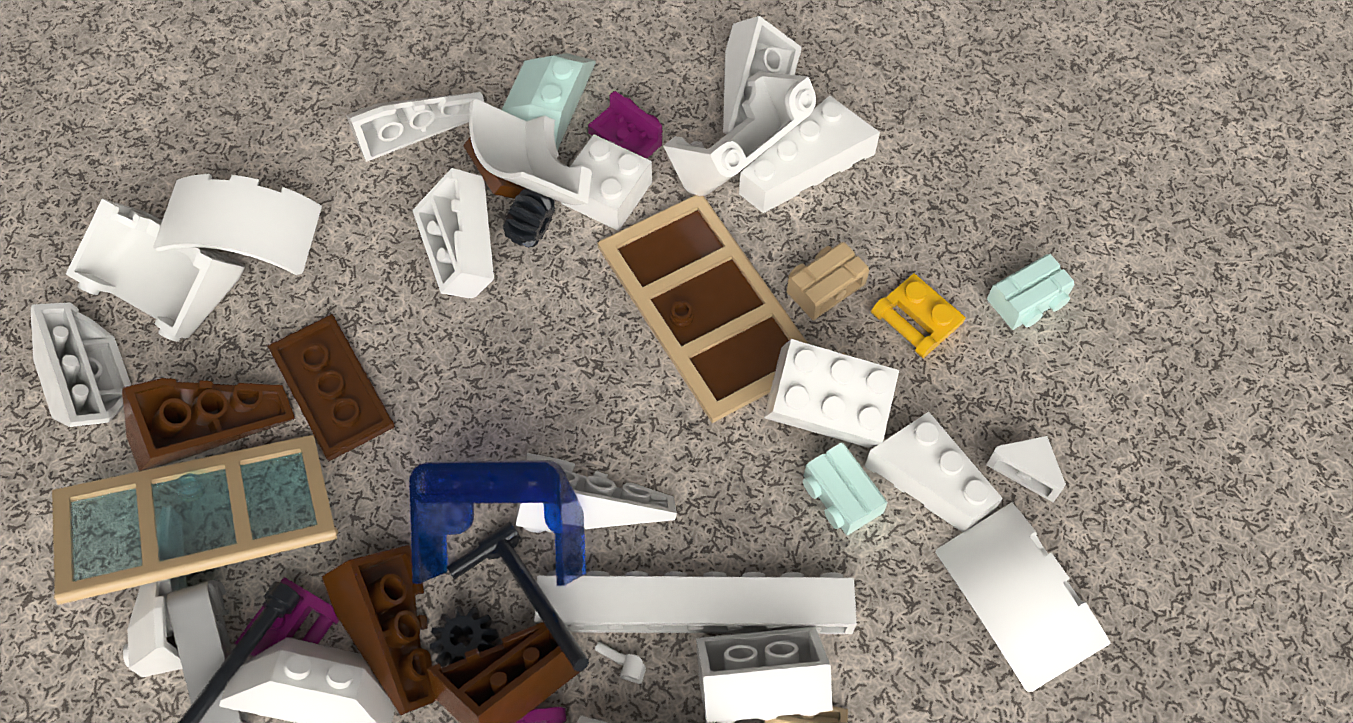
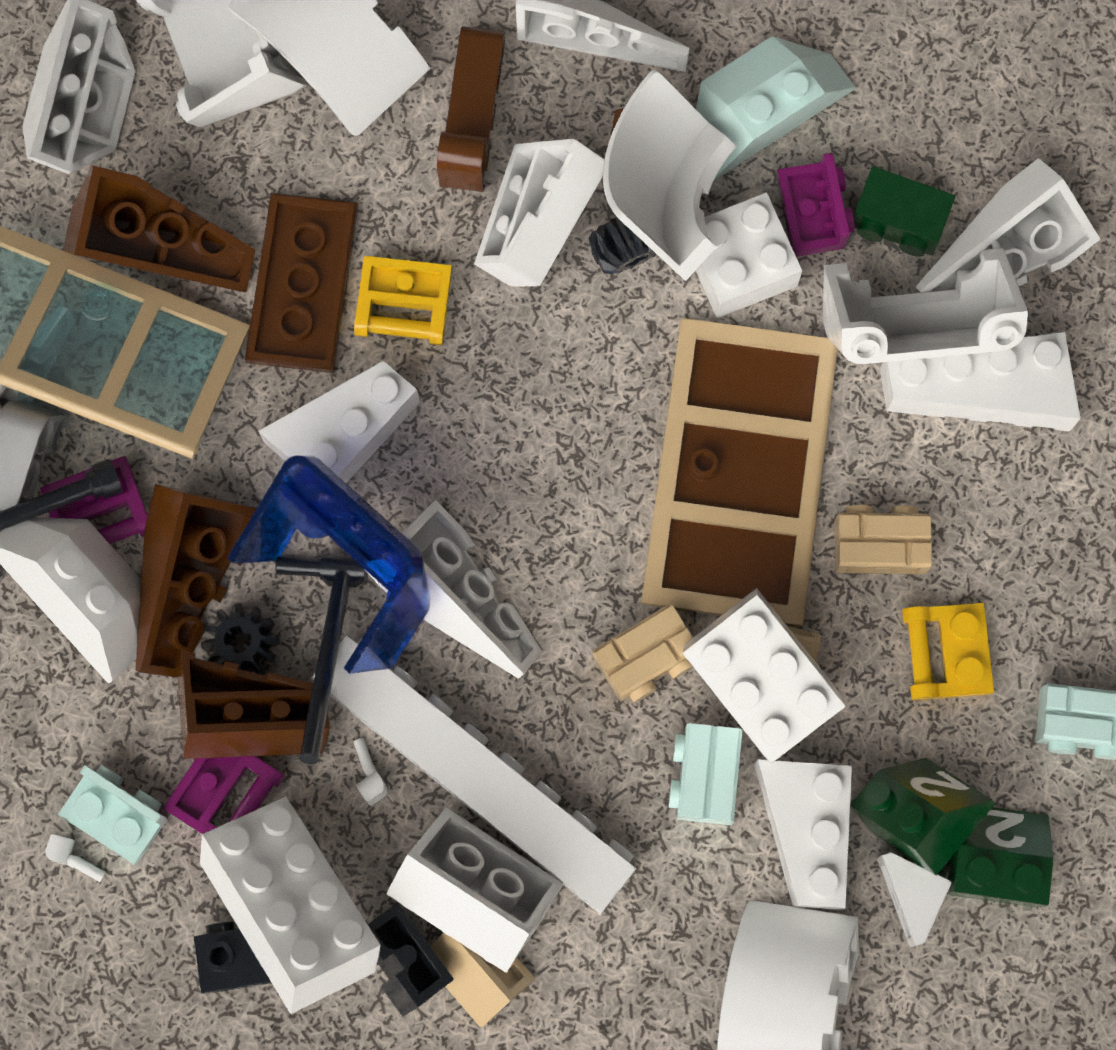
camera: 40 degrees right, 15 degrees up
(368, 212) = (472, 109): none -> reddish brown beam
(404, 340) = (403, 286): none -> yellow plate
(430, 434) = (346, 422): none -> white wedge
(680, 100) = (902, 212): none -> dark green brick
(742, 446) = (645, 654): none -> tan brick
(992, 411) = (921, 811): none -> dark green slope
(1058, 404) = (1005, 860): none -> dark green slope

